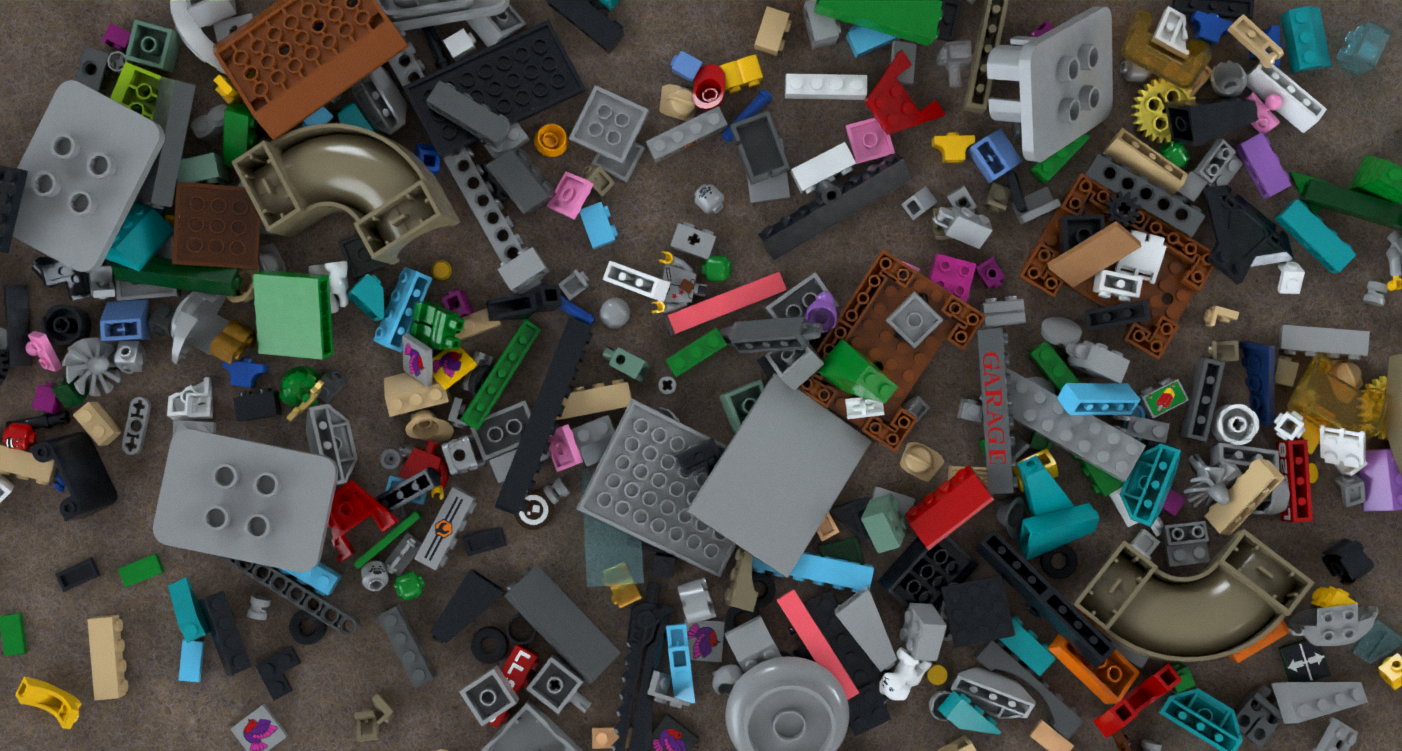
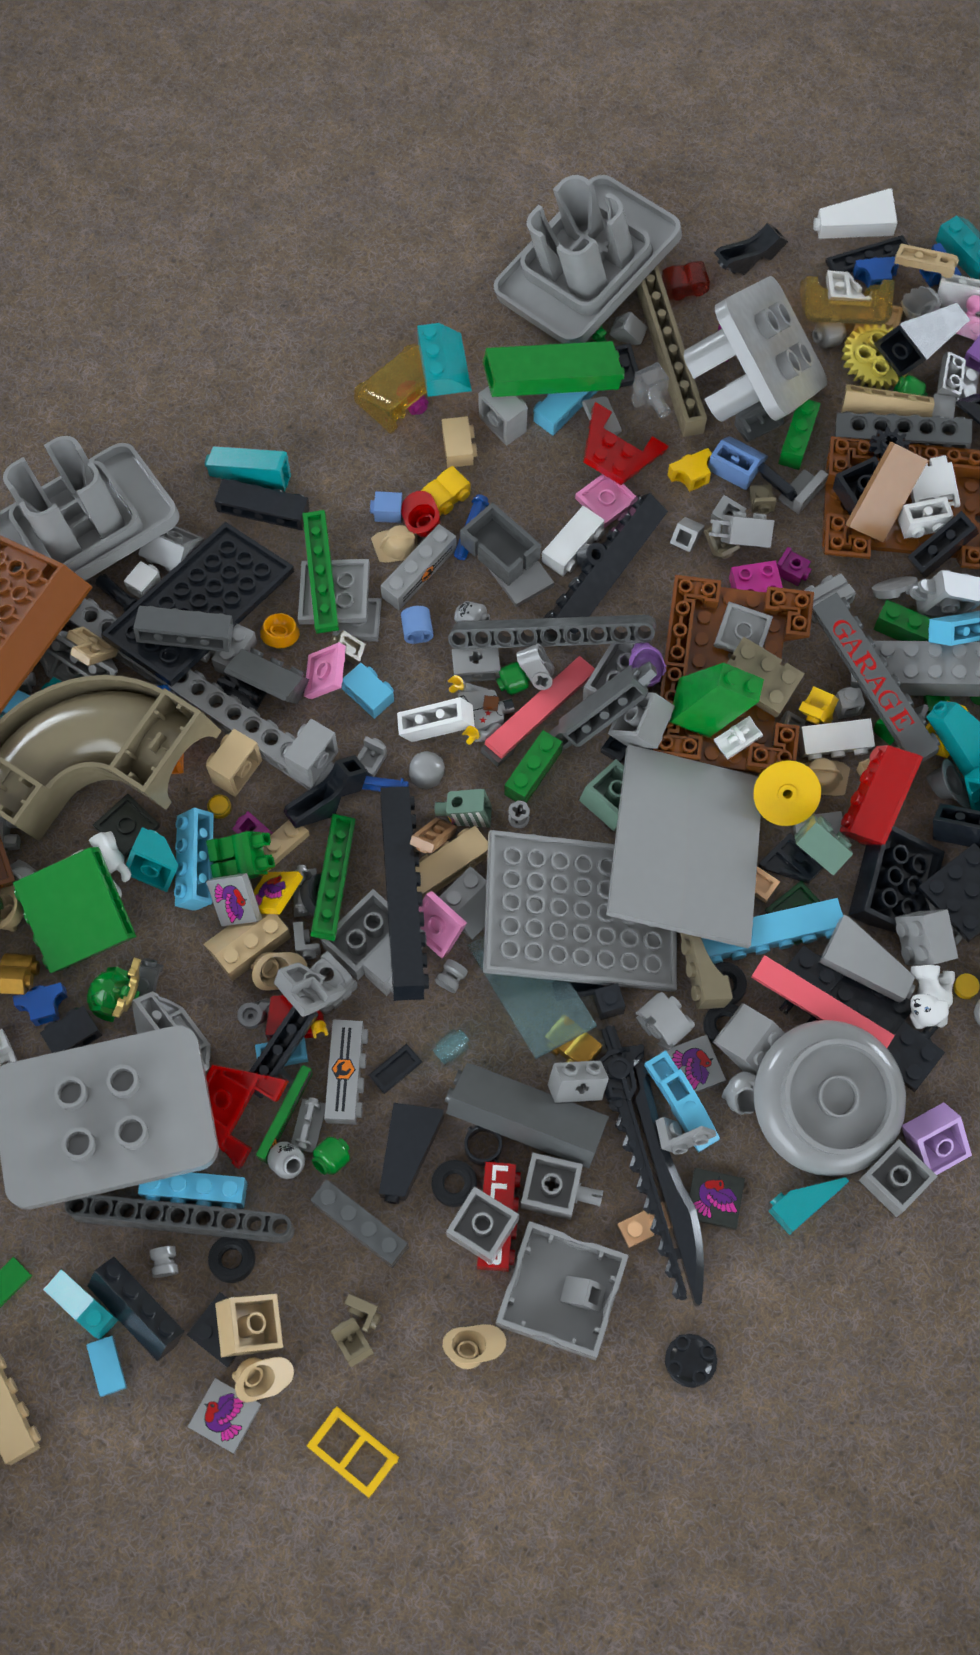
camera: 25 degrees left, 20 degrees down
(292, 720) = (262, 1378): none -> tan piece
(297, 684) = (249, 1325): none -> tan brick
(393, 95) = (90, 647): none -> tan tile
(437, 463) = (306, 989): none -> light grey slope
(464, 243) = (233, 762): none -> tan brick
(532, 544) = (451, 1046): none -> clear light blue brick
(538, 511) = (436, 1011): dark brown tile -> none
(590, 377) = (433, 835): none -> medium nougat plate
(604, 105) = (320, 572): none -> green plate
(610, 617) = (577, 1081): none -> light grey brick
(661, 186) = (417, 624): none -> medium blue piece
(702, 455) = (594, 859): black plate -> none
(737, 271) = (536, 666): none -> light grey piece
(762, 250) = (560, 625): none -> dark grey beam
(825, 86) = (537, 467): white brick -> none
(878, 468) = (787, 793): none -> yellow piece
(906, 367) = (778, 679): none -> dark tan piece
(942, 408) = (819, 706): none -> yellow brick
(943, 437) = (836, 739): none -> white brick

